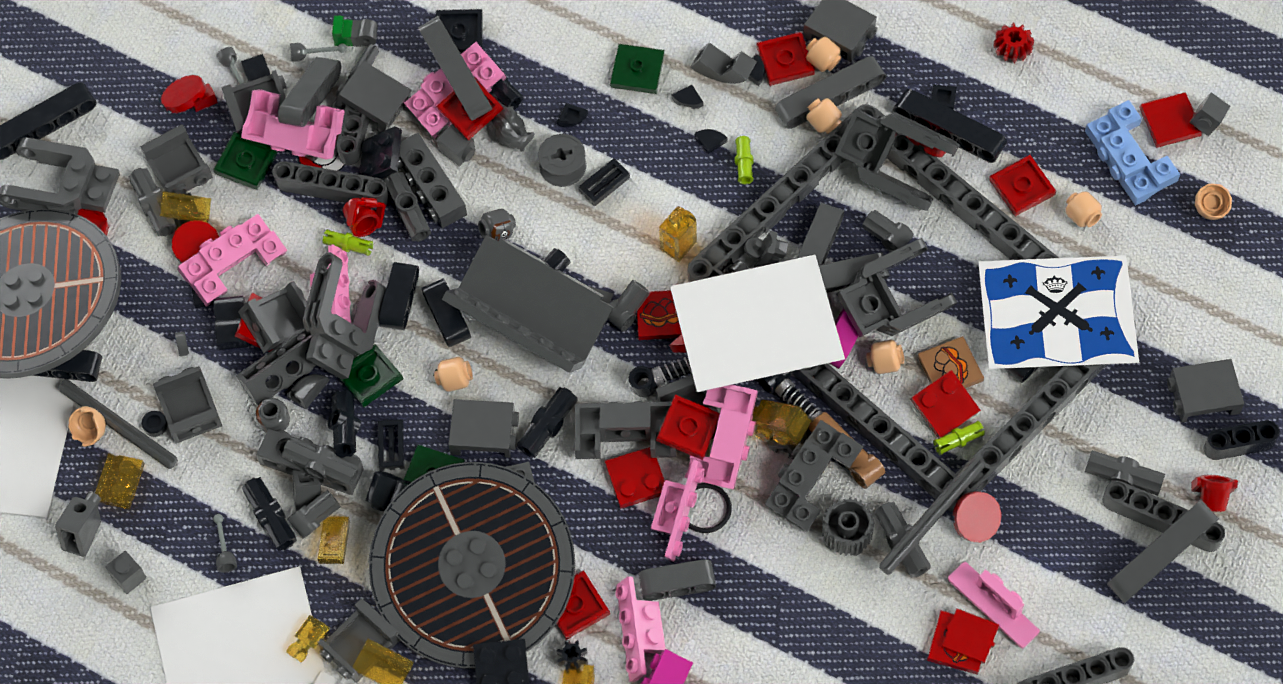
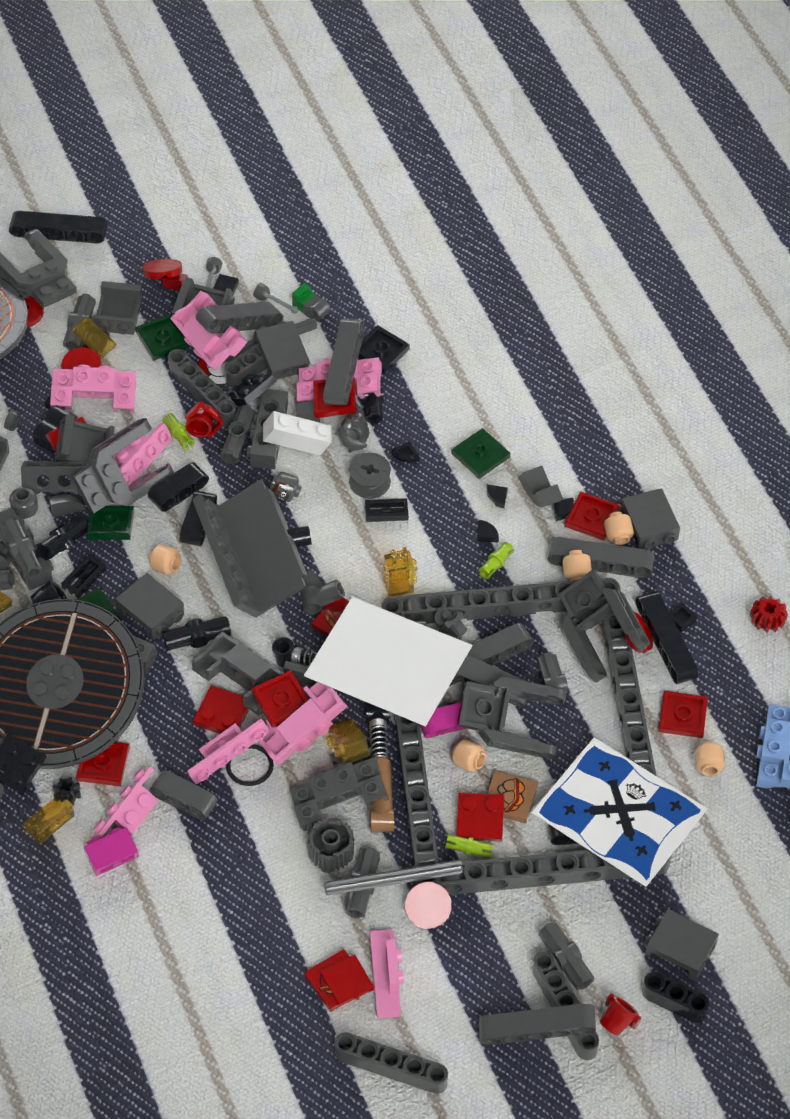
camera: 35 degrees right, 10 degrees down
(466, 167) = (296, 433): none -> white brick

